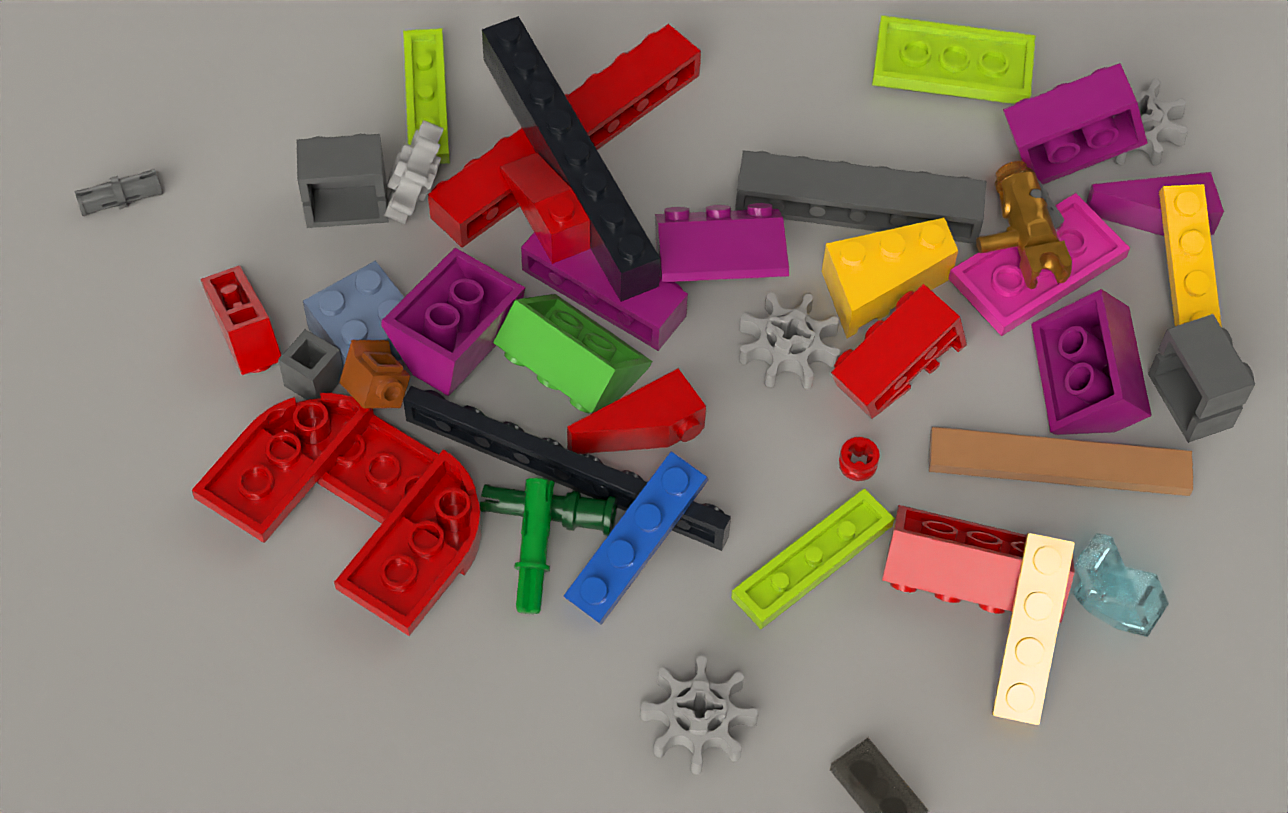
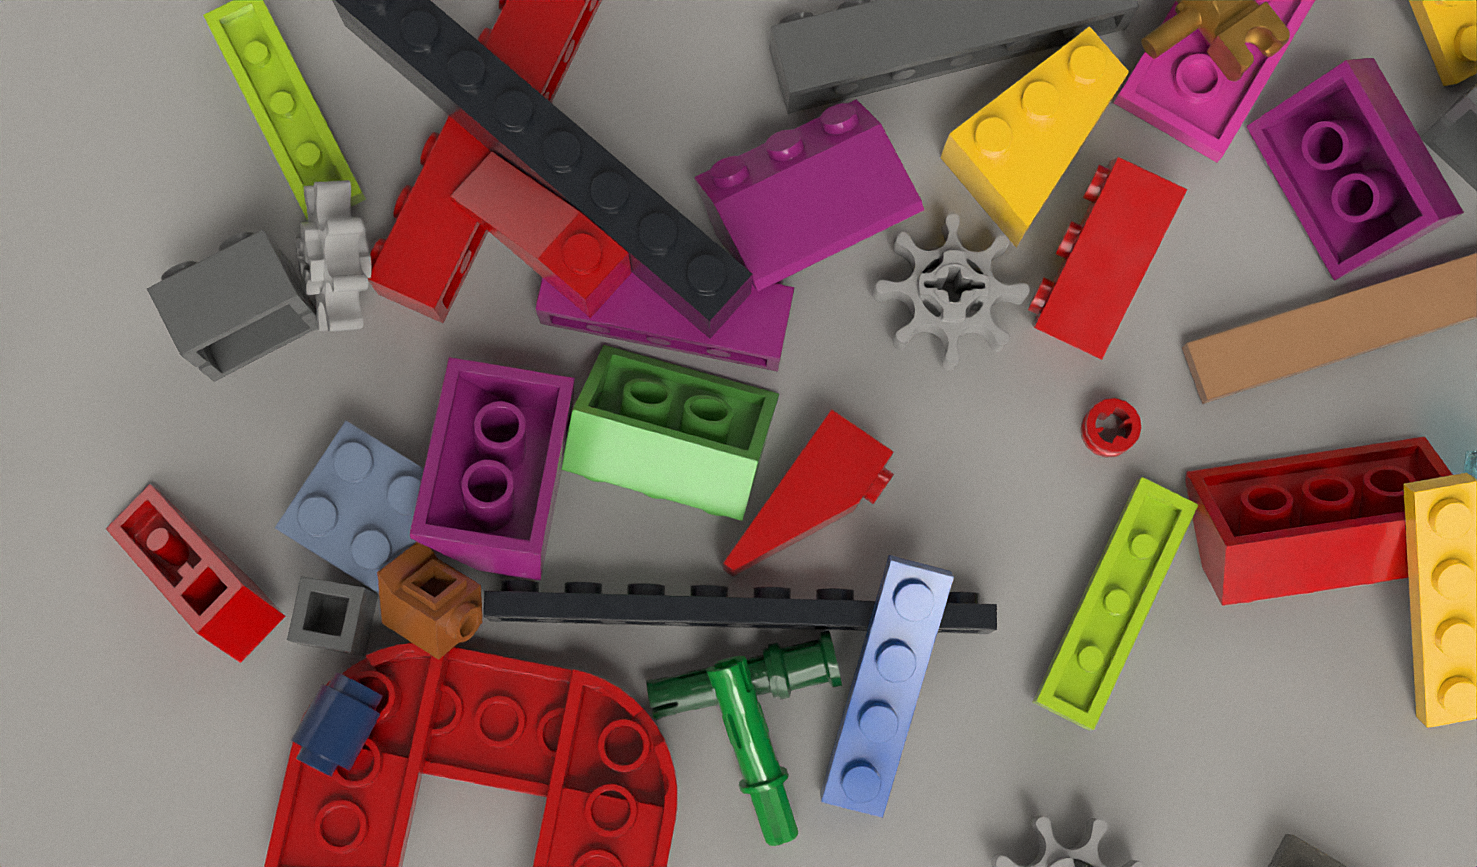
camera: 25 degrees left, 20 degrees up
(284, 415) = (337, 724): none -> dark blue brick

